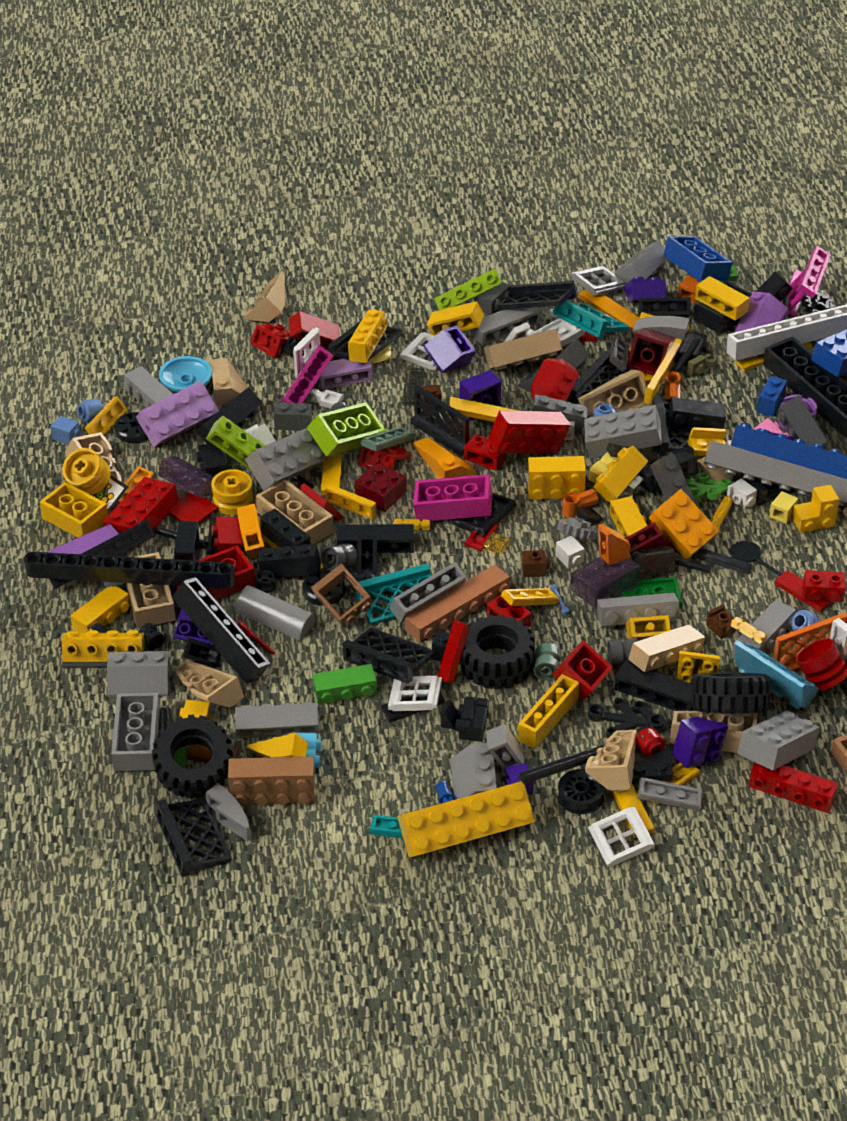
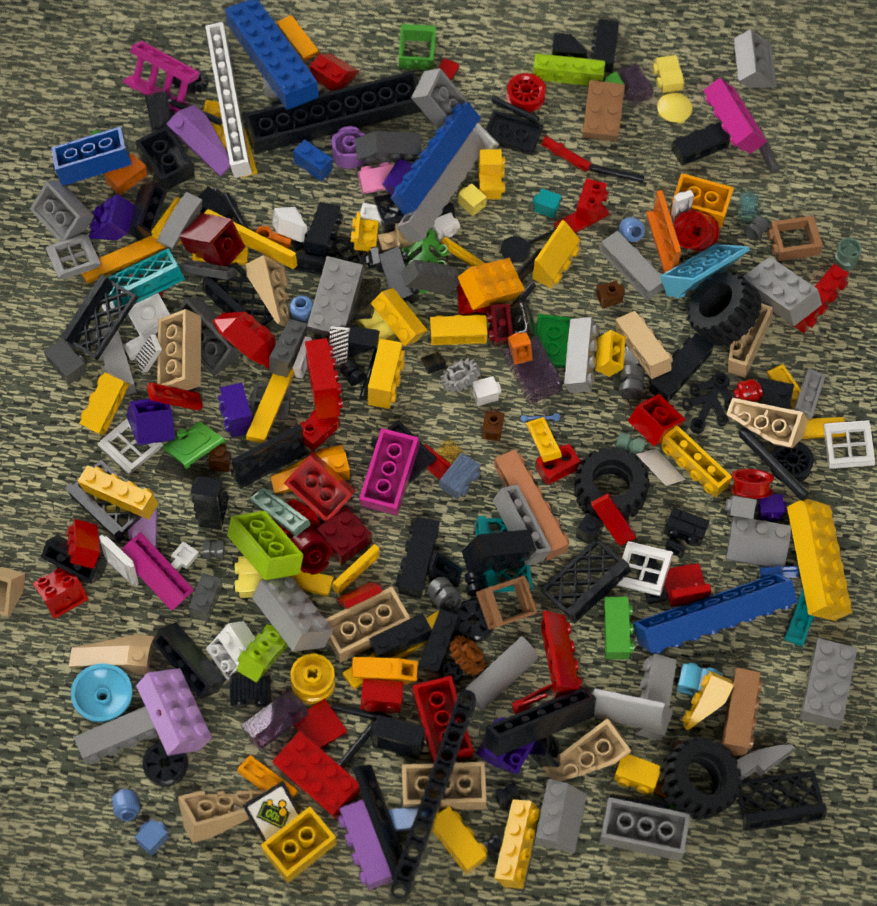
camera: 80 degrees left, 20 degrees up
(86, 471) = (264, 821): yellow wheel -> none
(106, 417) = (145, 790): yellow tile -> none
(253, 695) = (632, 711): none -> light grey brick
(289, 578) = (468, 655): none -> dark orange gear
(301, 641) = (559, 653): none -> red slope
(329, 852) = (828, 683): none -> light grey brick
(352, 462) = (314, 549): none -> dark red brick
(378, 387) = (209, 502): none -> black wedge
(378, 746) = (715, 613): none -> blue brick
(385, 569) = (498, 551): none -> black brick
(407, 729) = (686, 585): none -> red bracket
(419, 451) = (320, 486): none -> red brick
(424, 524) = (402, 520): yellow axle -> none
(444, 381) = (197, 444): none -> bright green container
(468, 290) = (58, 380): lime bracket -> none
(470, 551) = (460, 476): none -> sand blue brick
(476, 351) = (174, 396): none -> red tile
(529, 682) = (661, 467): none -> white sticker
(534, 750) = (752, 483): none -> red wheel
(573, 501) = (415, 365): orange piece -> none
(576, 443) = (339, 341): none -> tile
(587, 450) = (362, 340): none -> black slope
(695, 389) = (289, 223): none -> white slope
(696, 663) = (668, 323): yellow slope -> none
(698, 364) = (244, 207): olive plate -> none
(699, 741) = (768, 352): dark purple slope -> none
(722, 298) = (172, 152): yellow brick -> none
(745, 570) = (556, 255): none -> yellow slope
(748, 630) = (640, 273): yellow axle -> none
(807, 559) = (547, 203): none -> teal brick

